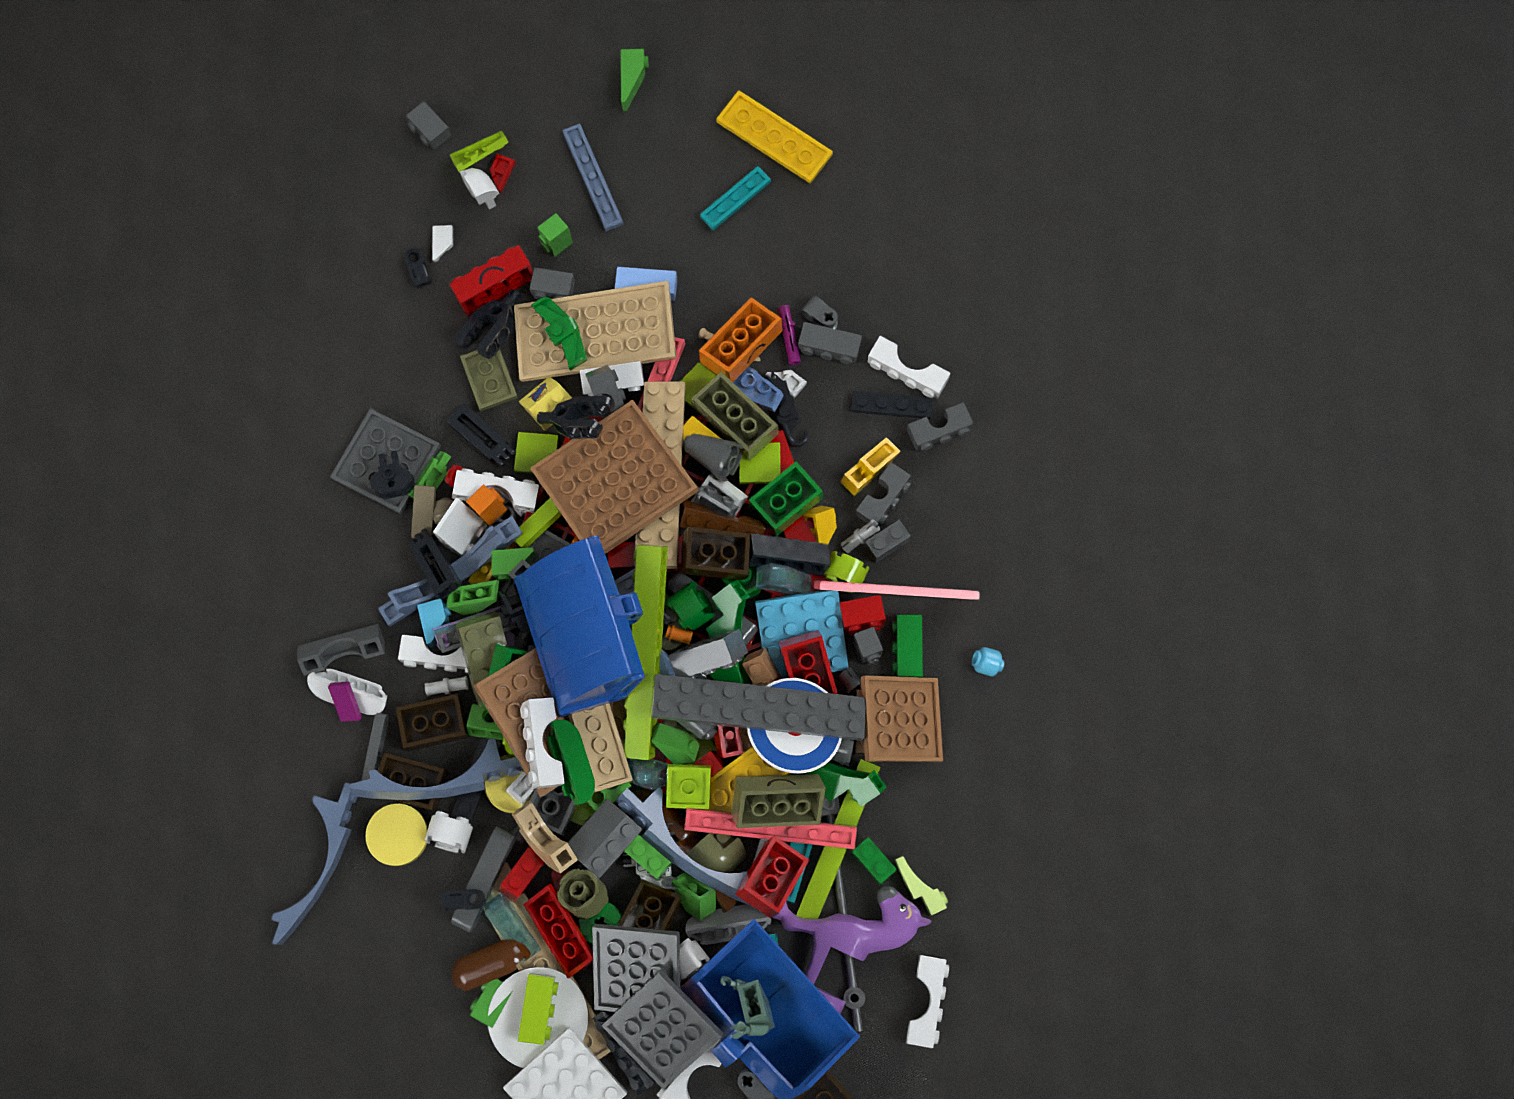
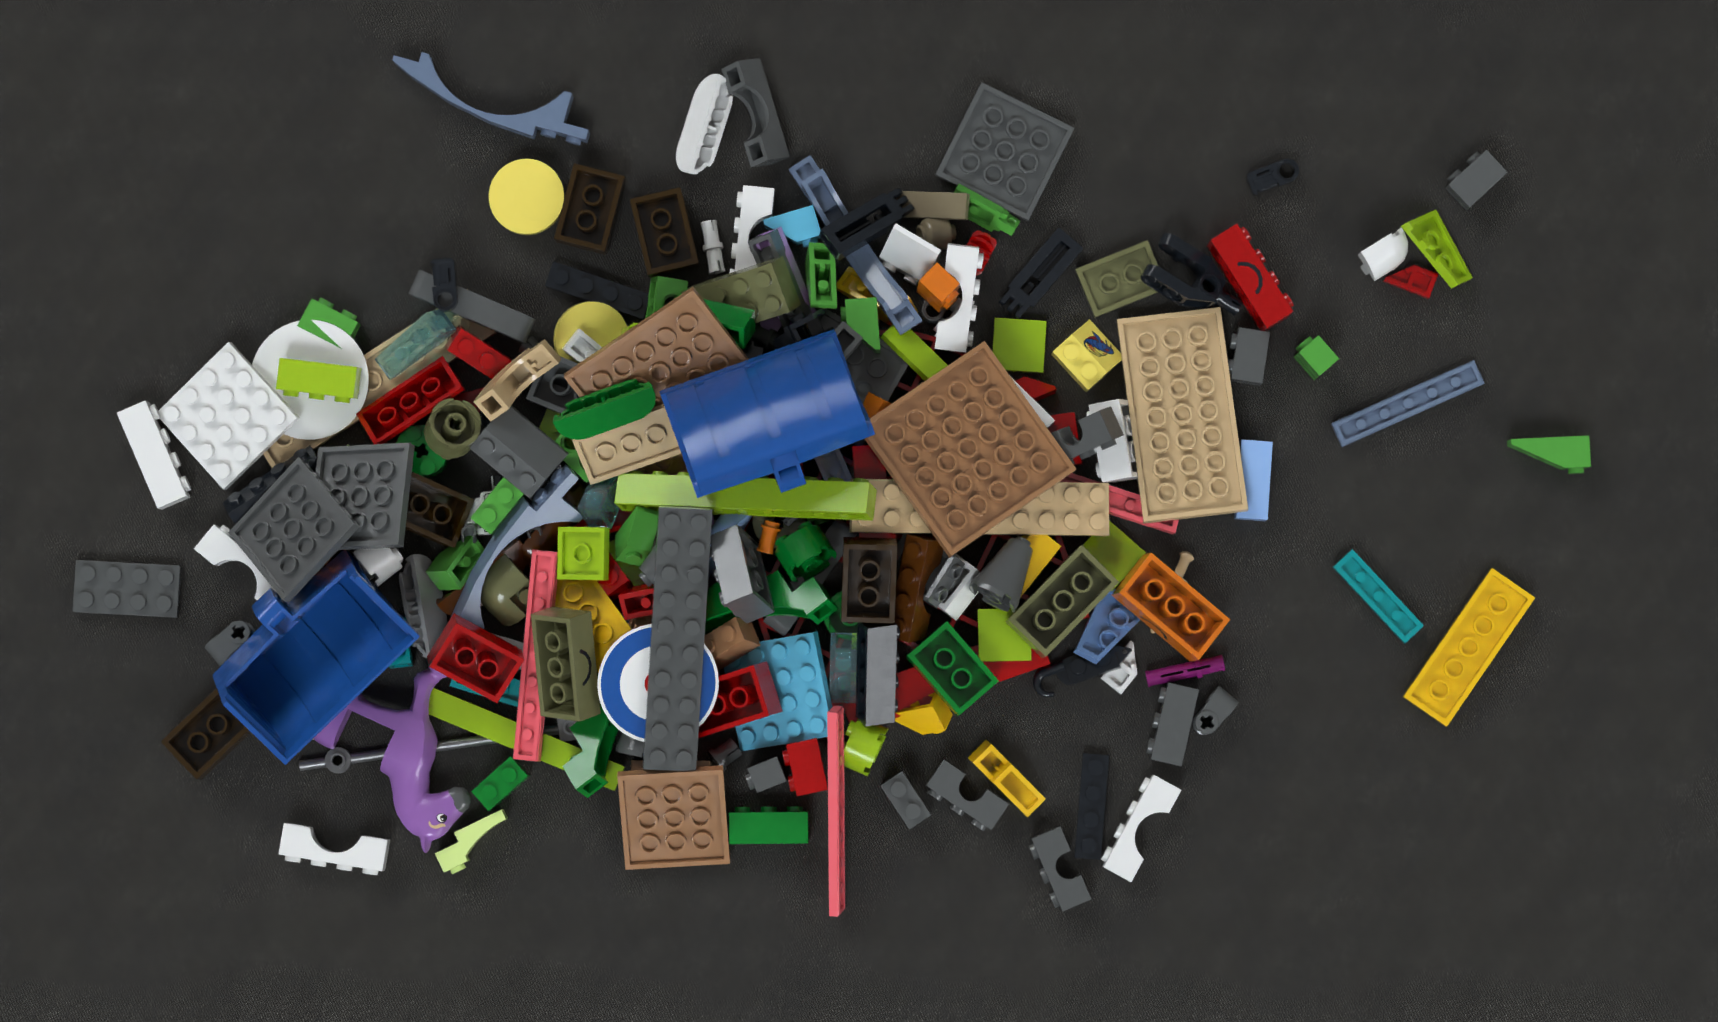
camera: 85 degrees right, 10 degrees up
(344, 701) = (689, 122): magenta tile -> none
(376, 744) = (627, 162): dark grey beam -> none
(392, 478) = (979, 161): black hinge -> none
(442, 240) = (1312, 207): white tile -> none
(448, 832) = (528, 260): white brick -> none
(487, 768) = (605, 304): sand blue slope -> none
(488, 964) = (371, 317): reddish brown brick -> none
(544, 769) = (656, 366): white arch -> none
(562, 330) = (1180, 373): green plate -> none
(567, 413) = (1057, 384): black piece -> none
(754, 1007) = (320, 639): sand green torso -> none
(860, 536) = (910, 765): light grey pin -> none
(987, 661) = (751, 927): medium azure head -> none

